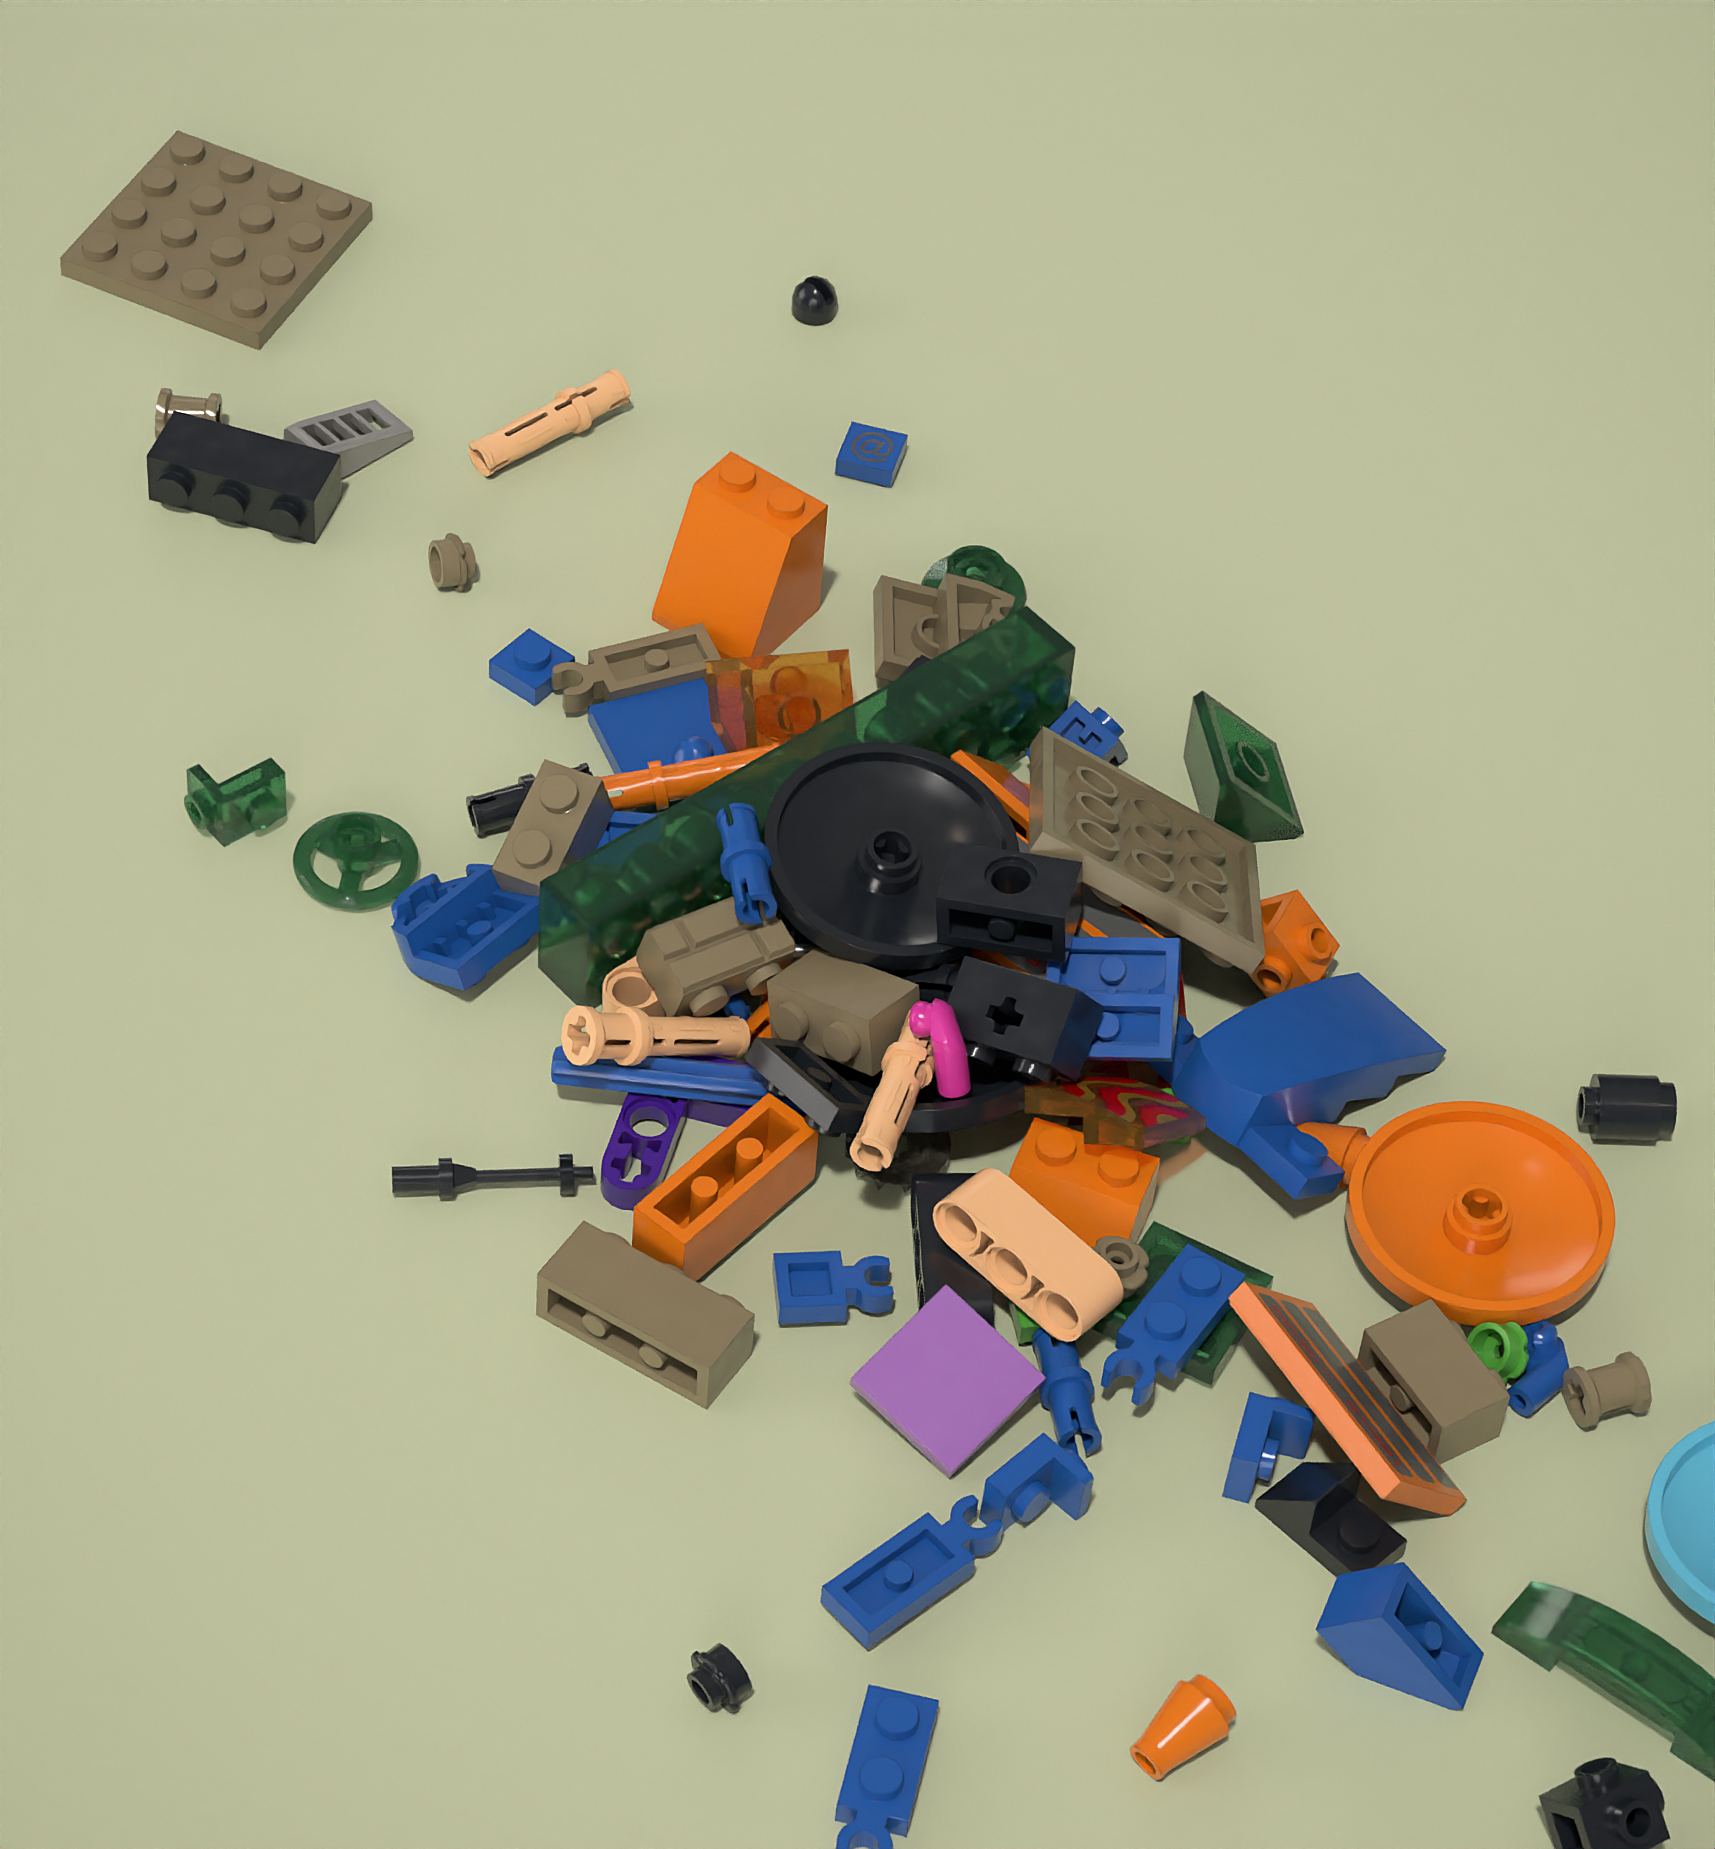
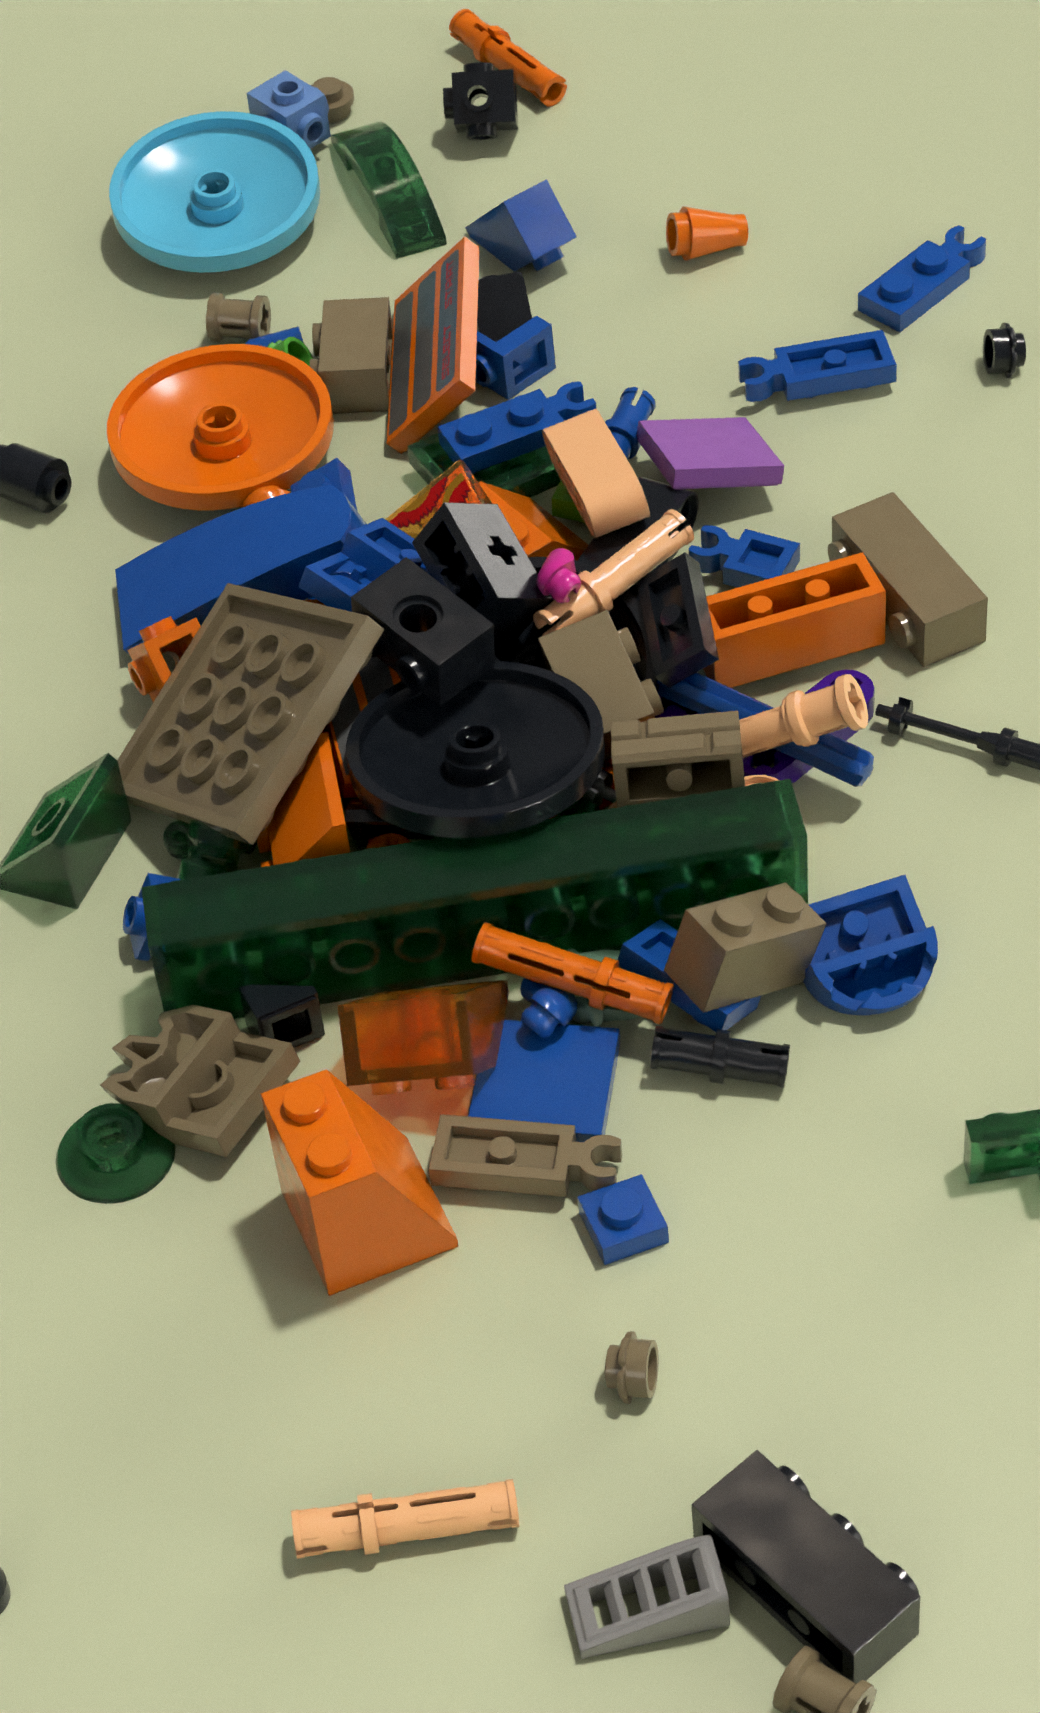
camera: 140 degrees left, 0 degrees up
(357, 847) = (922, 1059): clear green piece -> none
(746, 863) = (618, 758): blue pin -> none
(871, 454) = (87, 1343): blue tile -> none
(1034, 1477) = (697, 384): blue bracket -> none
(1132, 1260) = (526, 469): dark tan plate -> none

